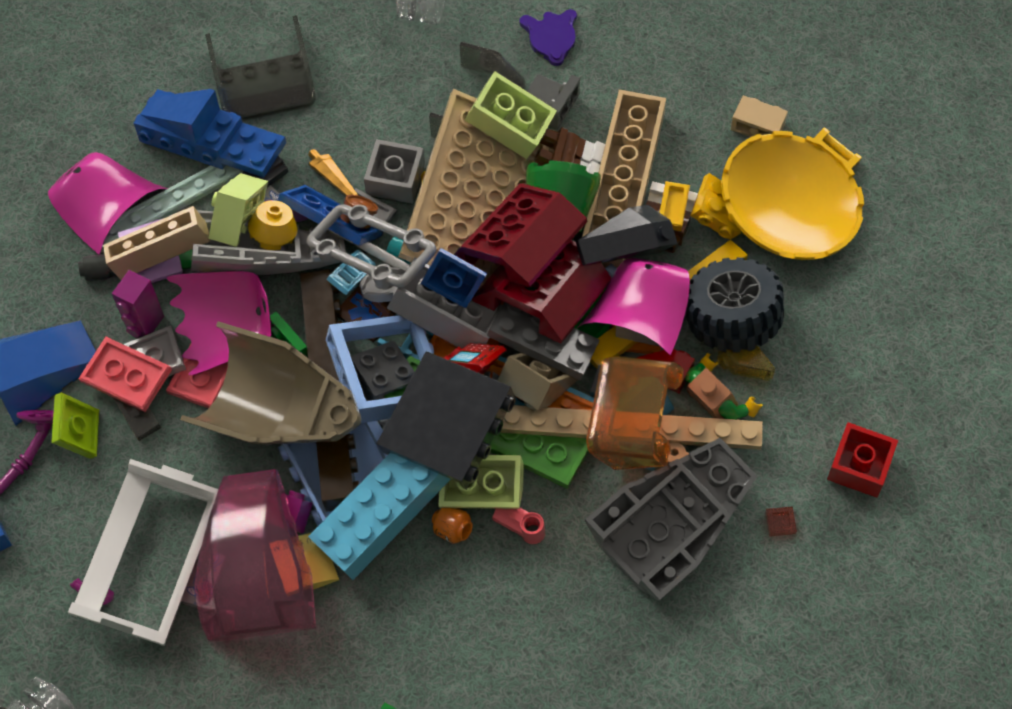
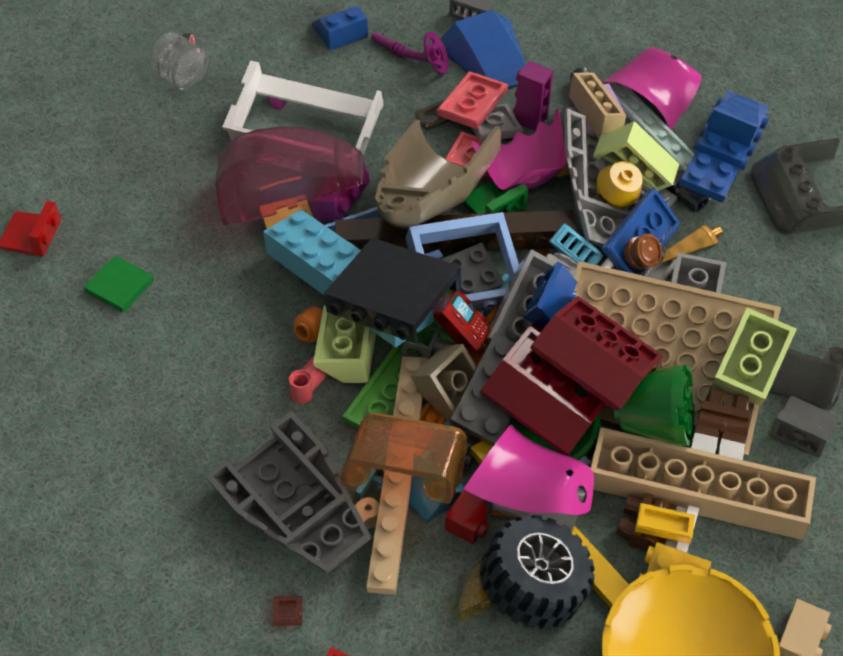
camera: 90 degrees right, 10 degrees down
(75, 425) = (424, 70): lime tile -> none
(382, 273) = (585, 215): light grey bar -> none
(628, 235) = (616, 465): black wedge -> none
(715, 395) = (432, 548): torso -> none

